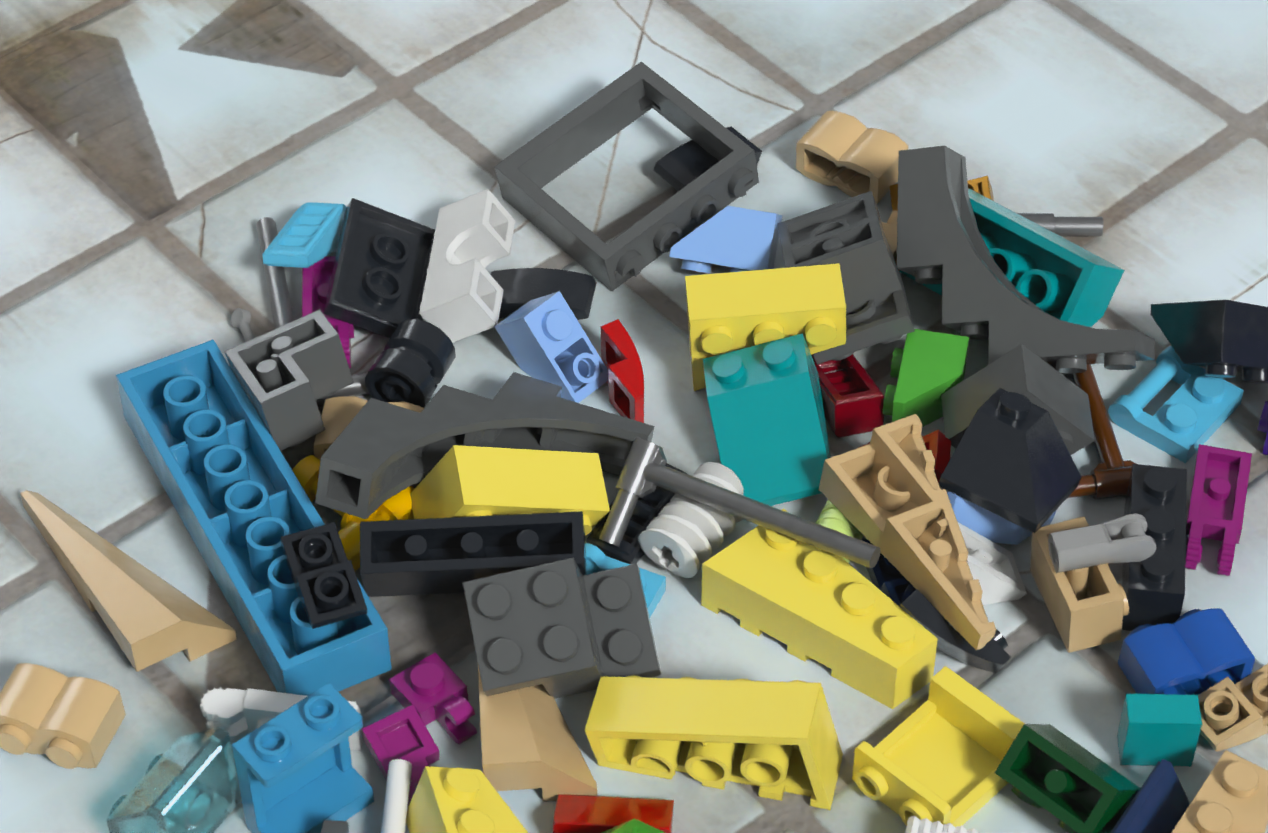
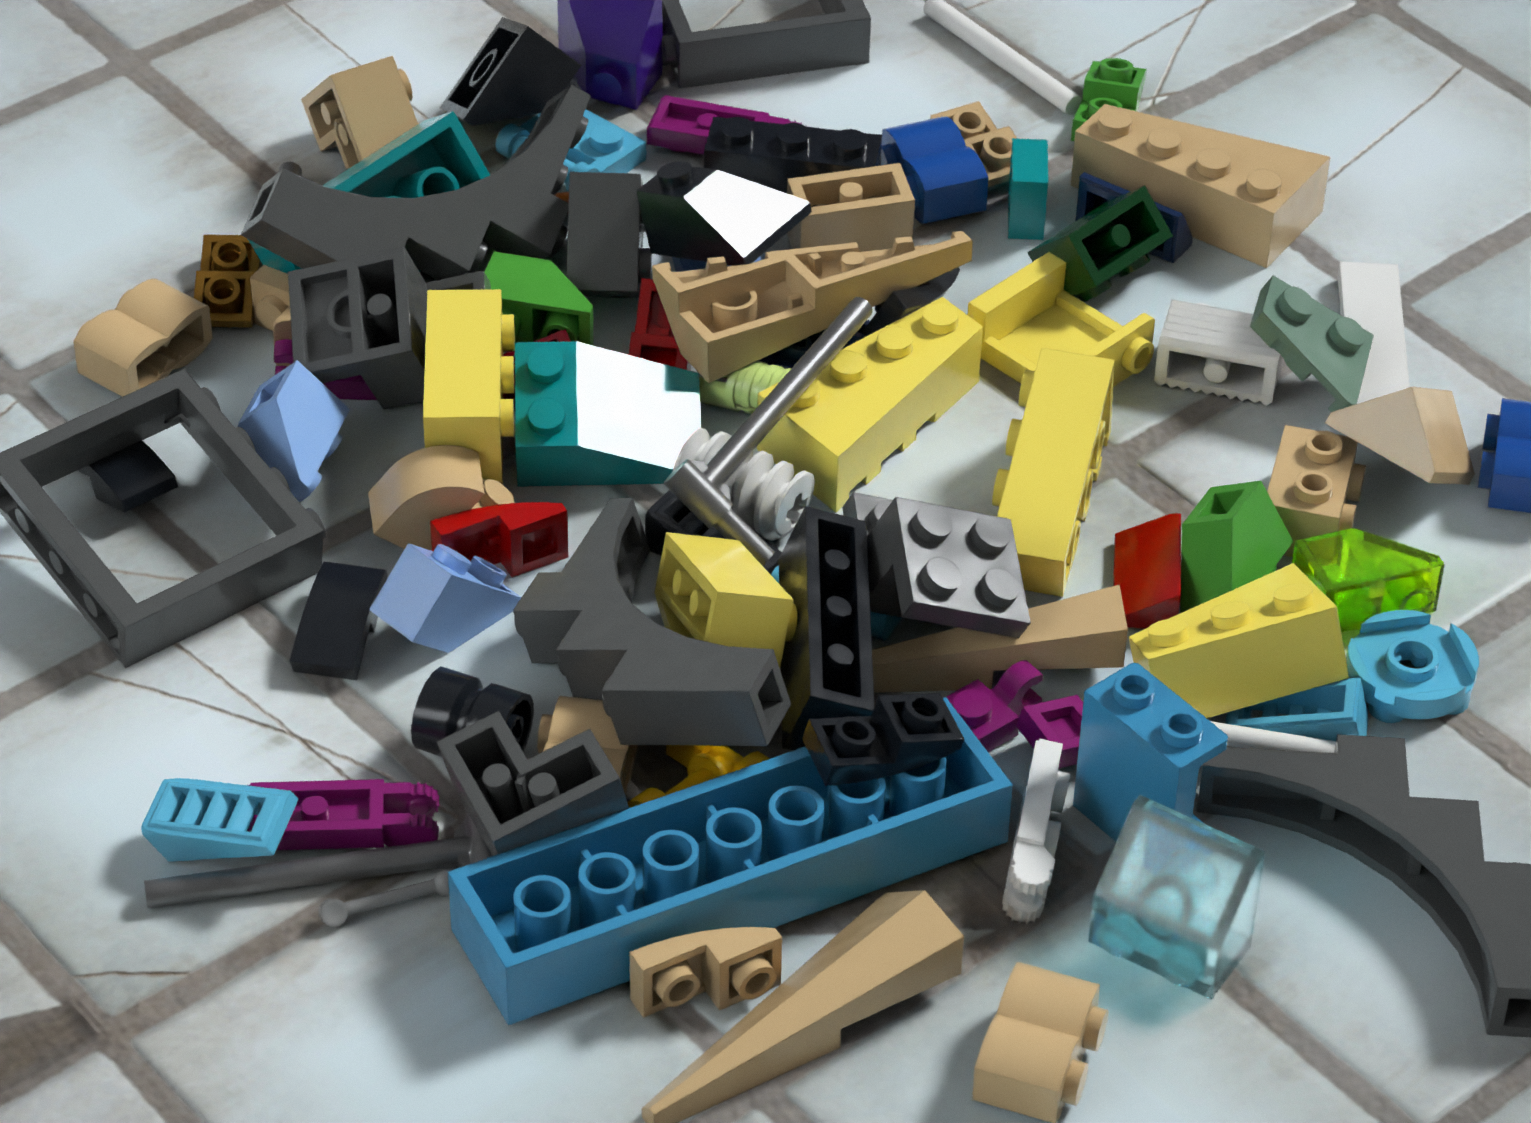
camera: 90 degrees left, 5 degrees down
(151, 529) = (721, 962): none -> tan slope
(378, 269) = (287, 751): black tile -> none
(458, 289) = (353, 678): white arch -> none
(659, 334) = (428, 487): none -> tan brick
(1100, 544) = (843, 162): light grey bar -> none
(1147, 242) = (361, 109): none -> tan brick

